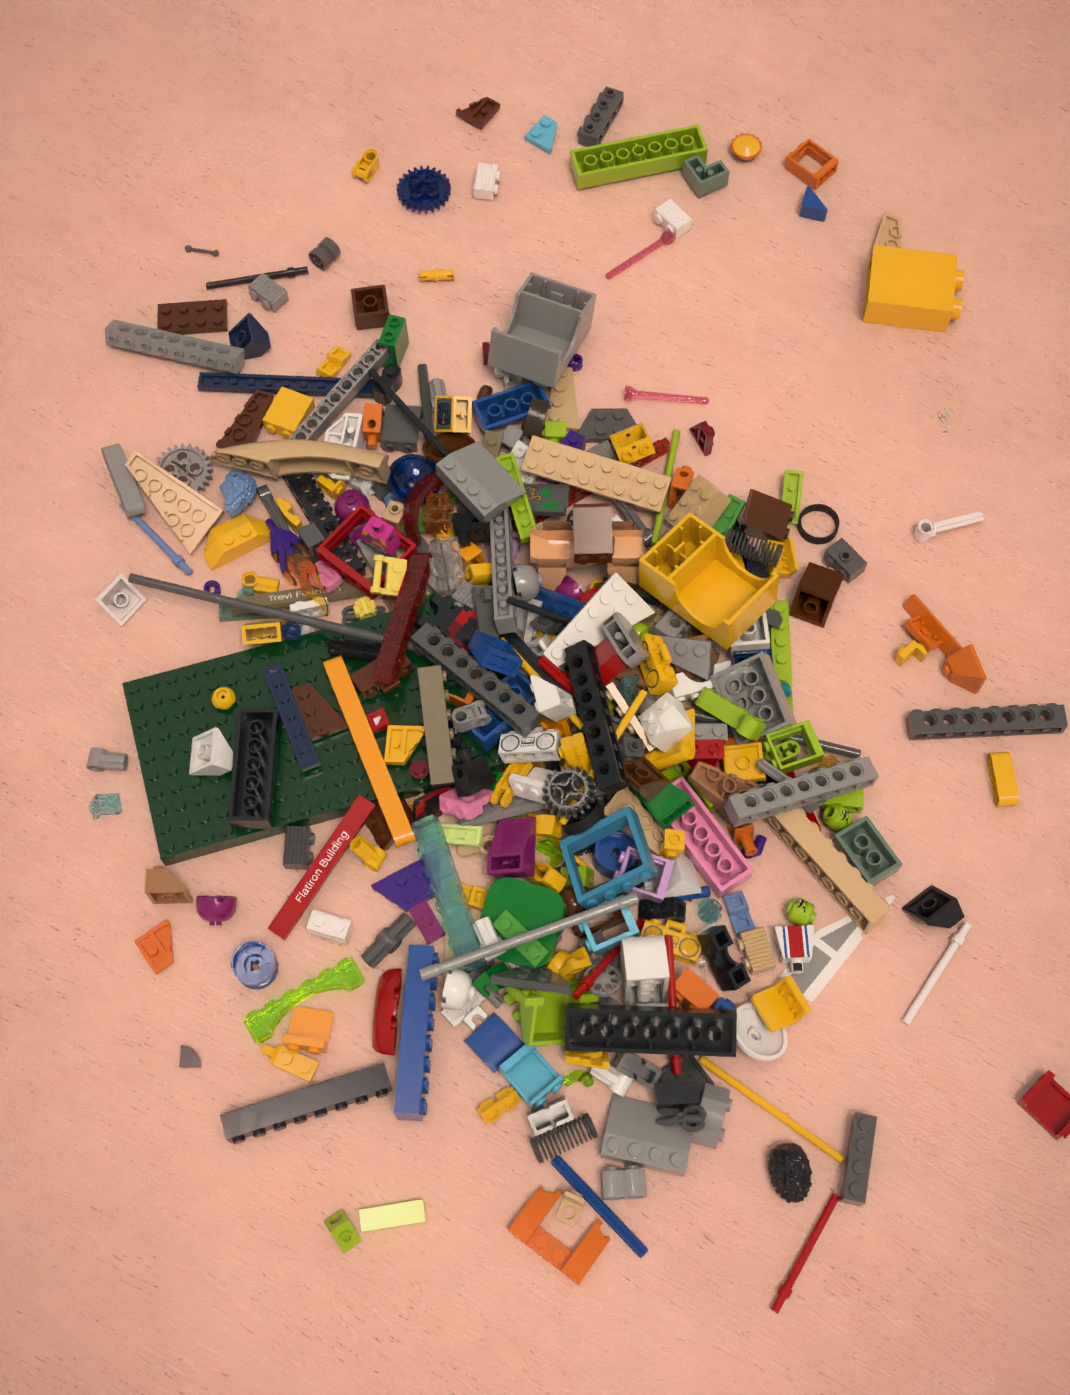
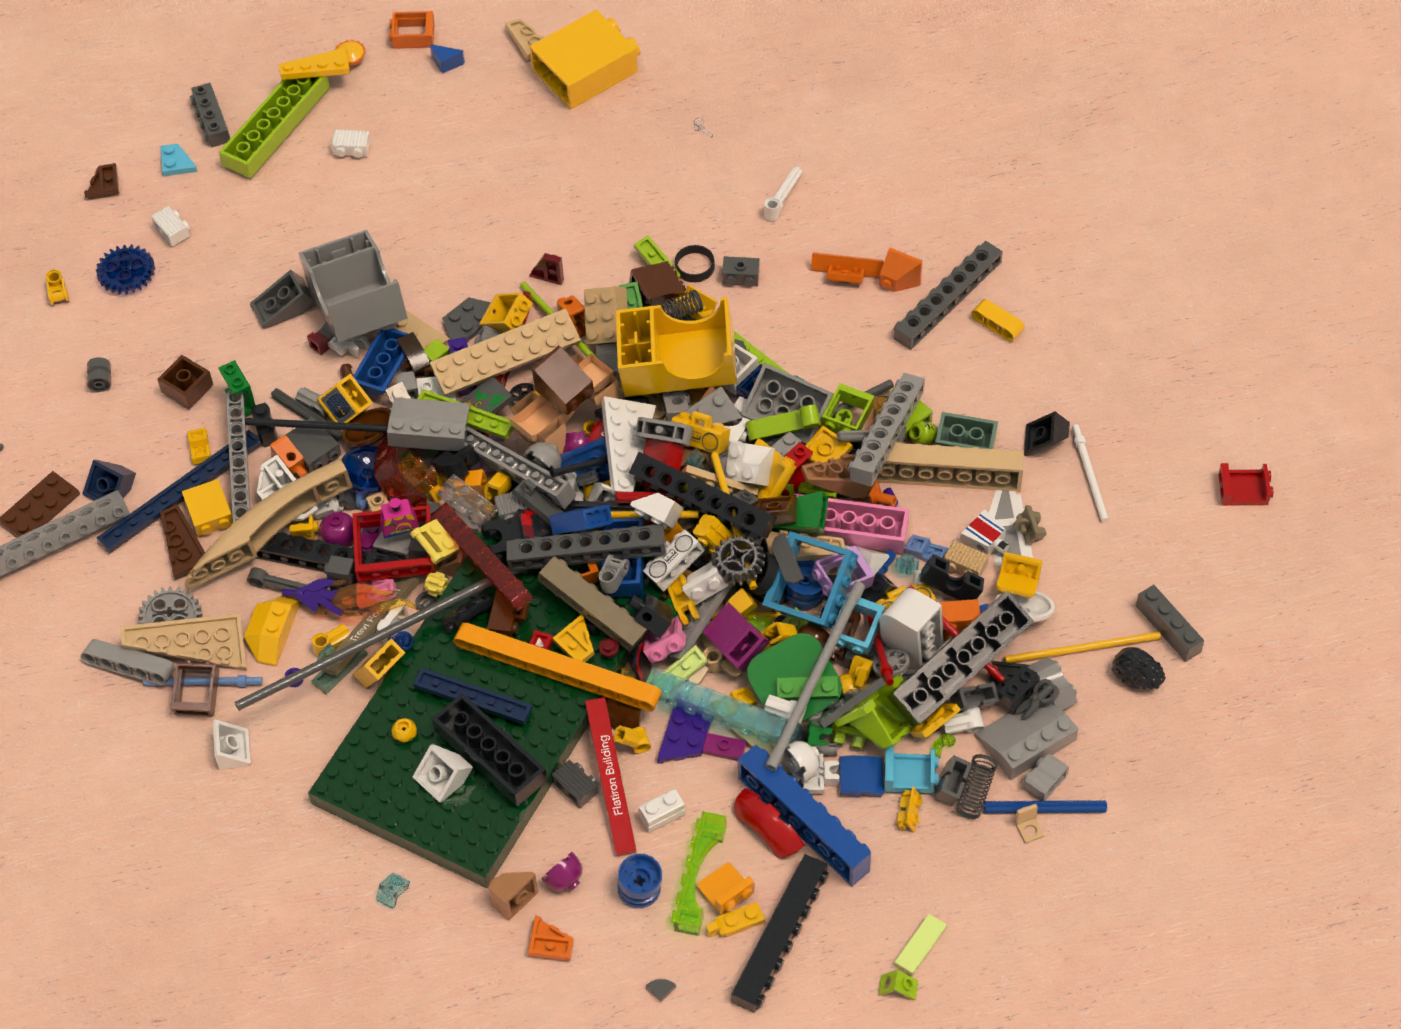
camera: 45 degrees left, 10 degrees down
(102, 759) = (351, 862): light grey piece -> none
(132, 527) = (191, 708): none -> reddish brown window
(239, 491) = (238, 587): medium blue piece -> none
(268, 293) = (84, 438): light grey brick -> none
(290, 272) = (82, 412): black bar -> none
(291, 519) = (287, 572): yellow slope -> none
(317, 713) = (493, 677): reddish brown wing -> none
(388, 940) = (712, 781): dark grey piece -> none
(429, 275) = (209, 321): yellow pin -> none
(494, 300) = (283, 300): none -> dark grey slope
(571, 1264) = (1069, 857): orange wedge -> none
(604, 825) = (786, 559): none -> dark grey piece
(632, 393) = (459, 285): clear pink piece -> none
(666, 239) = (361, 161): clear pink piece -> none
(673, 844) = (844, 533): yellow bracket -> none
(705, 137) = (318, 65): none -> yellow wing
(705, 178) = (341, 97): sand green brick -> none
(784, 1291) = (1213, 741): red bar -> none
(800, 912) = (965, 511): lime head -> none
(816, 594) = (748, 308): reddish brown slope -> none
(836, 968) = (1027, 523): none -> dark tan hips
(913, 649) = (852, 288): yellow bracket -> none

